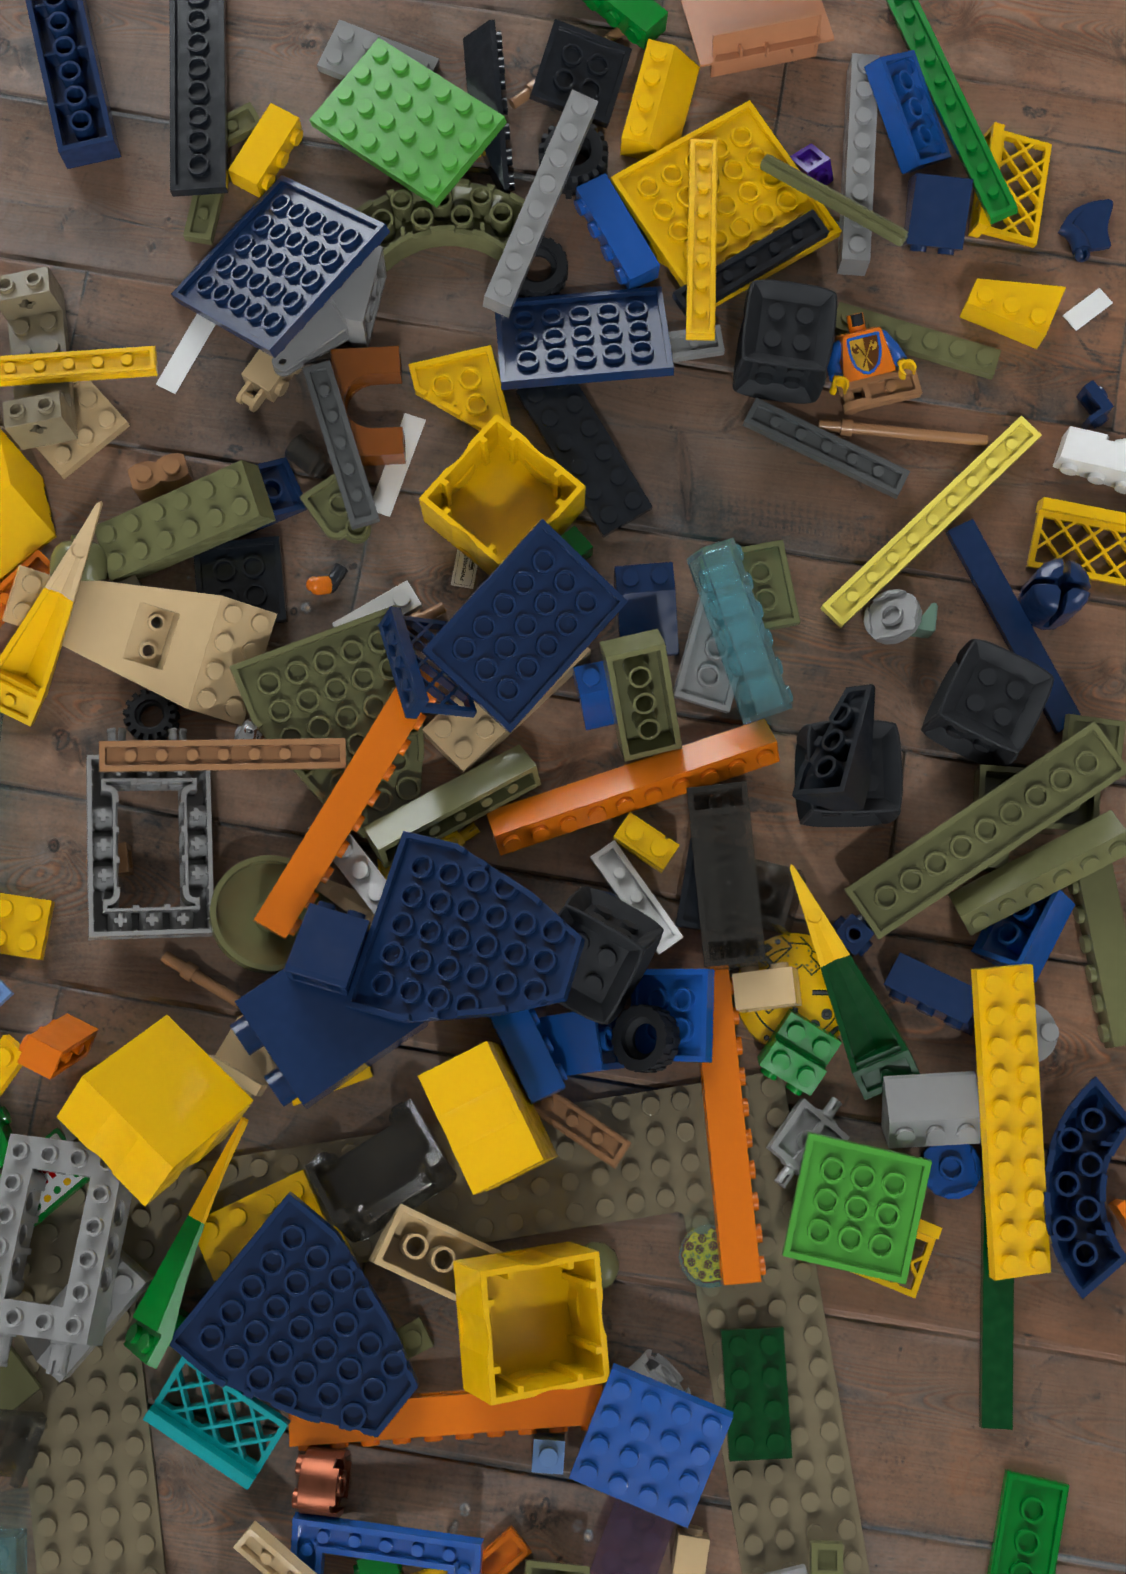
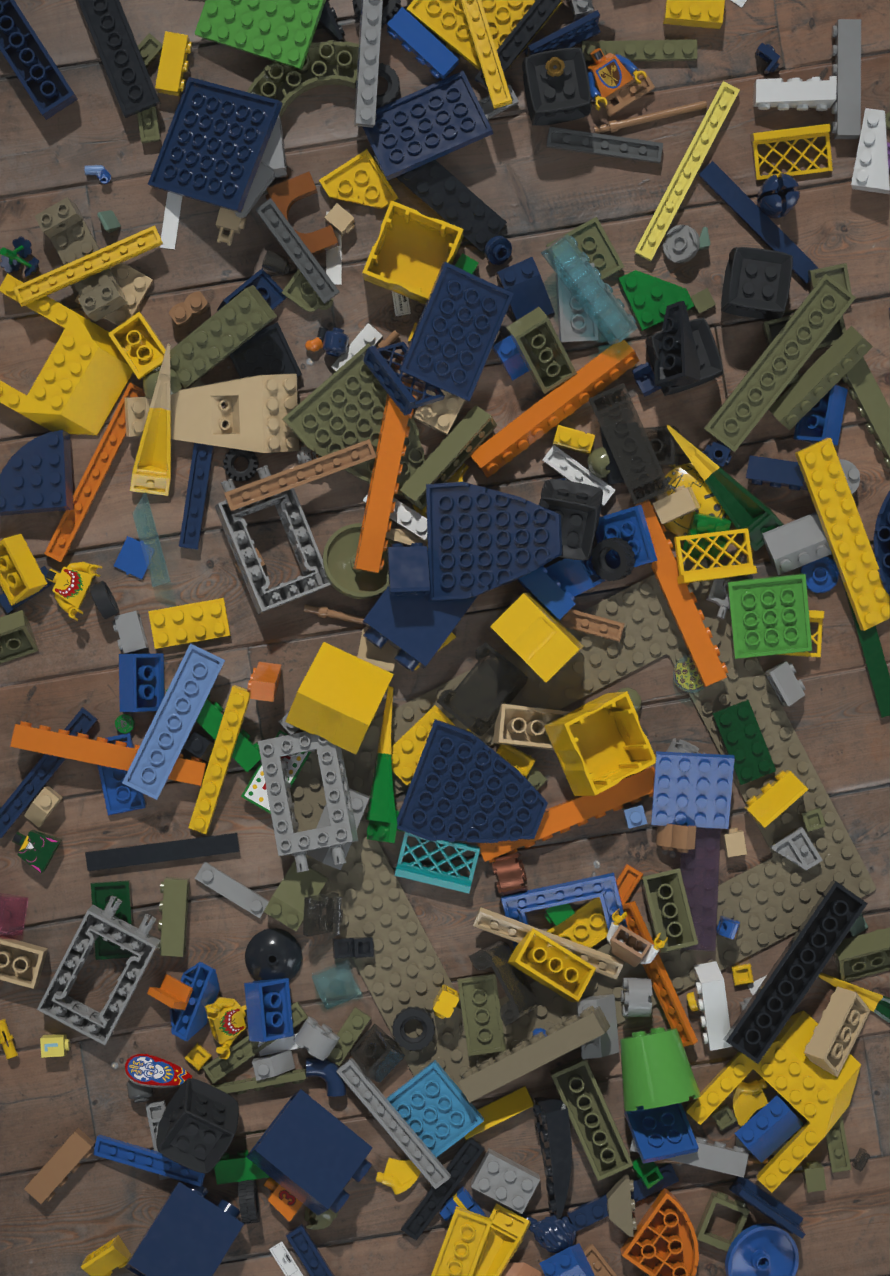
camera: 15 degrees left, 10 degrees up
(38, 1513) = (353, 947): none -> black slope
(66, 496) = (139, 345): none -> yellow slope
(69, 741) = (196, 496): none -> dark blue plate
(98, 325) = (109, 221): none -> sand green slope
(112, 257) = (100, 171): none -> arm
(350, 590) = (335, 342): none -> dark blue head
(396, 1297) = (516, 758): none -> yellow plate
(418, 426) = (340, 220): none -> tan brick
(601, 1513) = (677, 837): none -> medium nougat brick
(627, 539) = (498, 250): none -> dark blue plate
(670, 886) = (597, 462): none -> olive hair
(778, 791) = (645, 379): none -> dark blue bracket
(778, 1504) = (775, 798): none -> yellow slope
(791, 297) = (560, 66): none -> pearl gold plate
(795, 1112) = (712, 572): none -> yellow fence
(821, 675) = (651, 296): none -> green plate
(844, 276) = (568, 36): none -> dark blue fence
(848, 1322) = (785, 683): none -> light grey slope
(898, 707) = (703, 301): none -> olive tile

